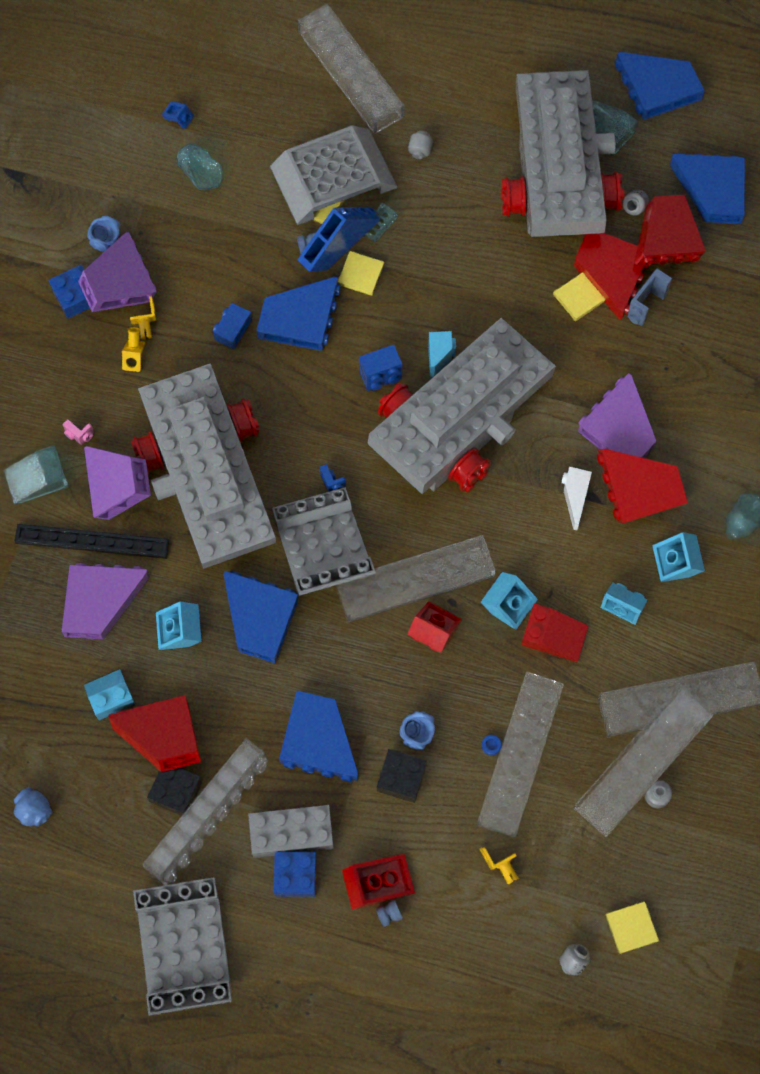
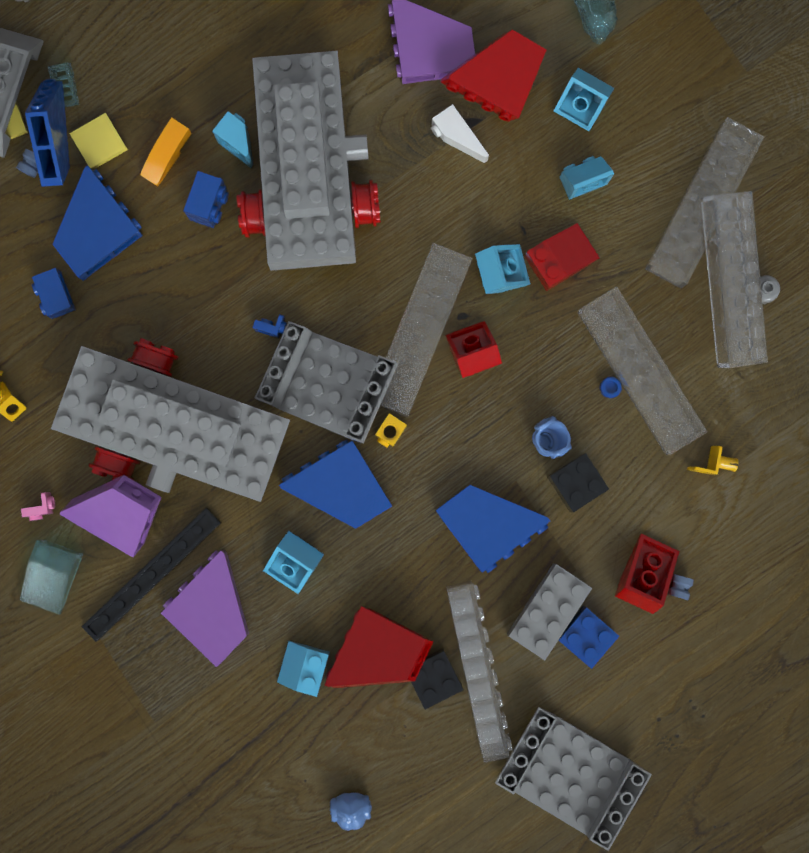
camera: 55 degrees left, 15 degrees up
(332, 610) = (393, 422): none -> yellow brick
(391, 318) = (165, 151): none -> light orange slope

